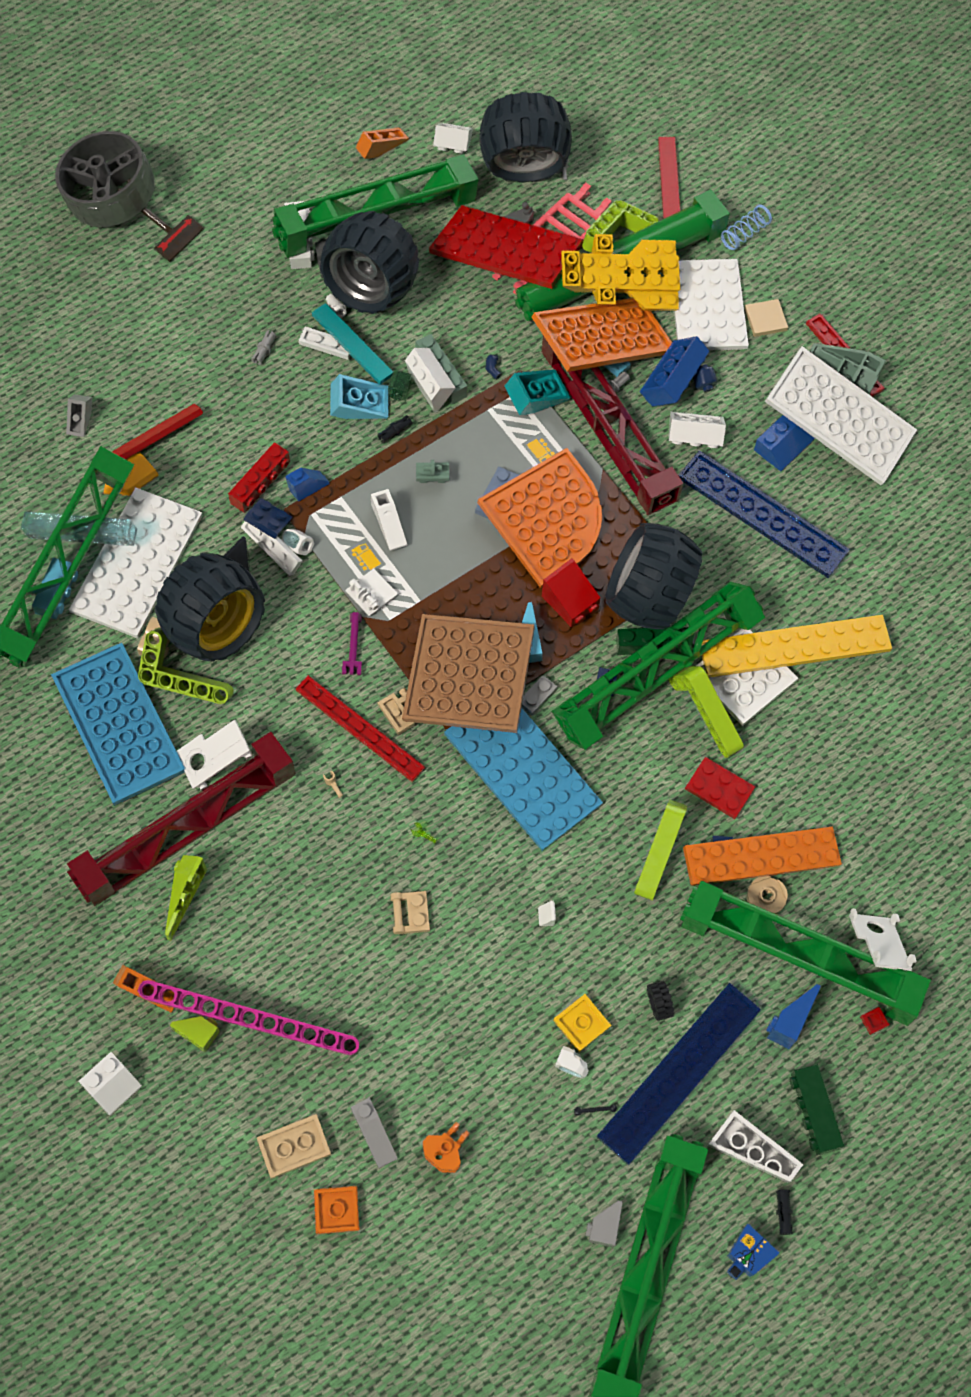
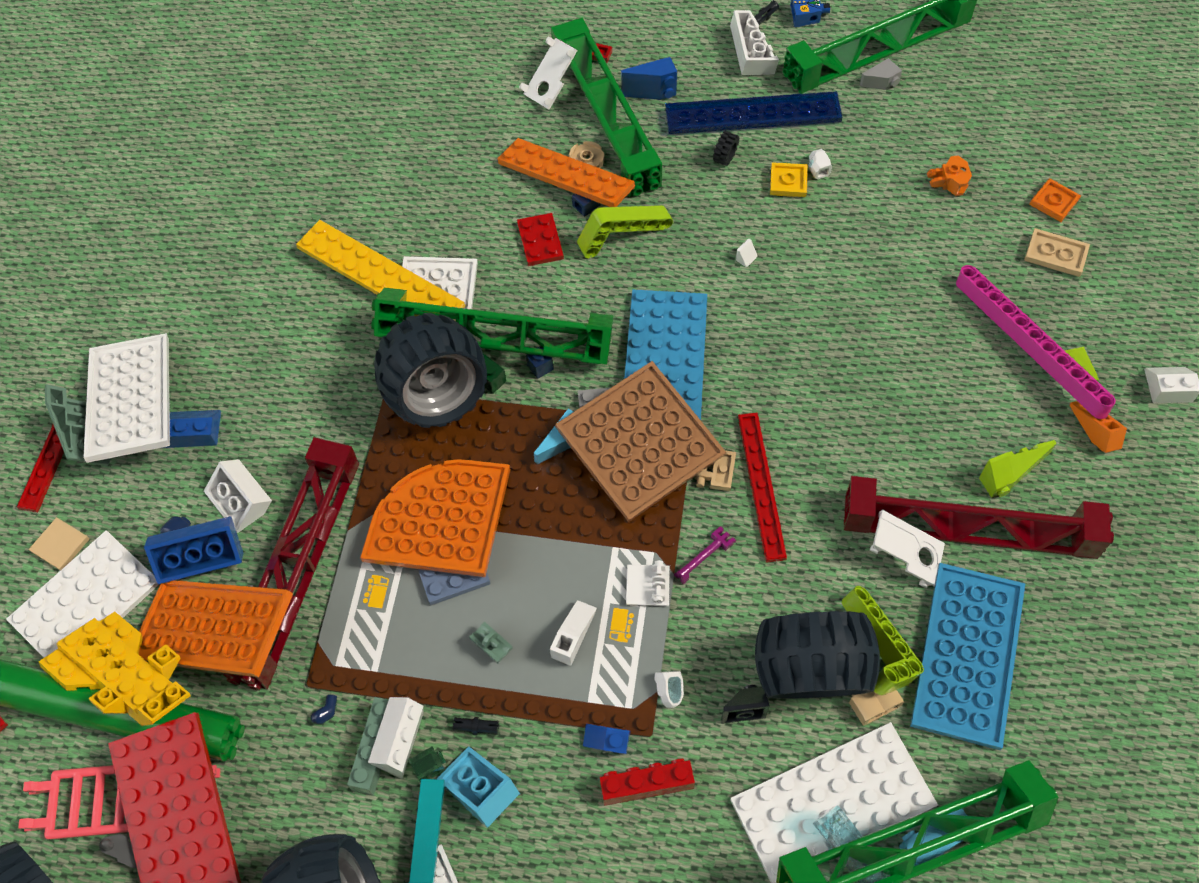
camera: 130 degrees left, 5 degrees down
(267, 518) = (678, 728): dark blue plate -> none
(274, 548) = (694, 706): white plate -> none
(332, 782) = (822, 459): tan hand -> none
(373, 1132) = (992, 224): light grey slope -> none
(417, 912) = (840, 324): tan plate -> none
(420, 832) = (784, 372): clear neon green hand -> none
(536, 391) = (321, 642): teal slope -> none
(570, 593) = (495, 438): red slope -> none
(578, 1111) = (839, 142): black hinge -> none
(617, 215) = (38, 758): lime beam -> none
(710, 707) = (489, 280): lime beam -> none
(763, 514) = (277, 390): clear blue plate -> none
(816, 1110) = (690, 38): dark green brick -> none

